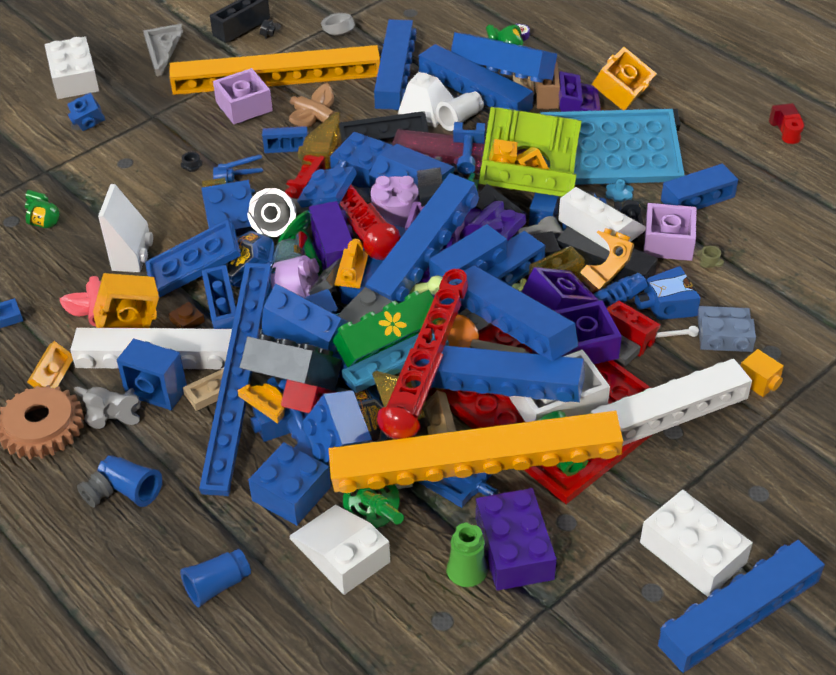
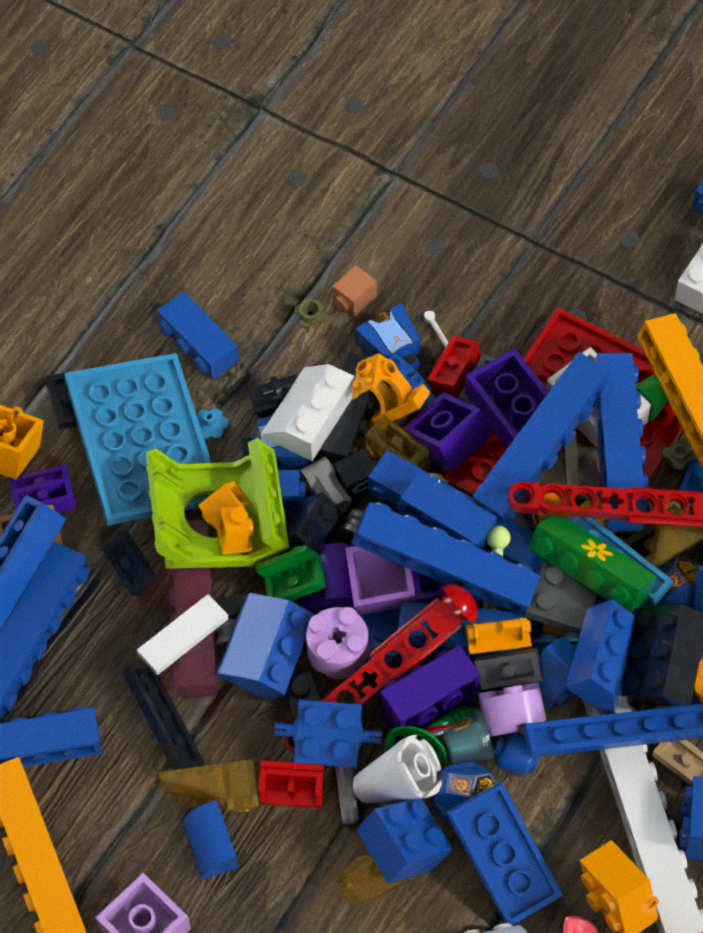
camera: 105 degrees left, 15 degrees up
(186, 317) = (583, 838): reddish brown plate -> none
(219, 297) = (565, 792): blue brick -> none
(226, 171) = (314, 892): blue plant -> none
(312, 109) = (134, 826): medium nougat plant -> none
(360, 153) = (244, 720): blue brick -> none
(424, 94) = (86, 681): white slope -> none
(428, 183) = (332, 585): black beam -> none
(434, 132) = (182, 634): none -> white tile
(458, 109) = (102, 630): white plant -> none
(467, 163) = (177, 603): blue bar -> none
(503, 221) = (352, 503): dark purple brick -> none
(670, 231) = (291, 344): lavender brick -> none
(680, 400) = (565, 301): white brick -> none
(725, 282) = (354, 291): none -> nougat brick
(726, 329) = (422, 284): sand blue plate -> none
(763, 371) = (482, 245): light orange brick -> none
(788, 121) = (38, 259): leg -> none

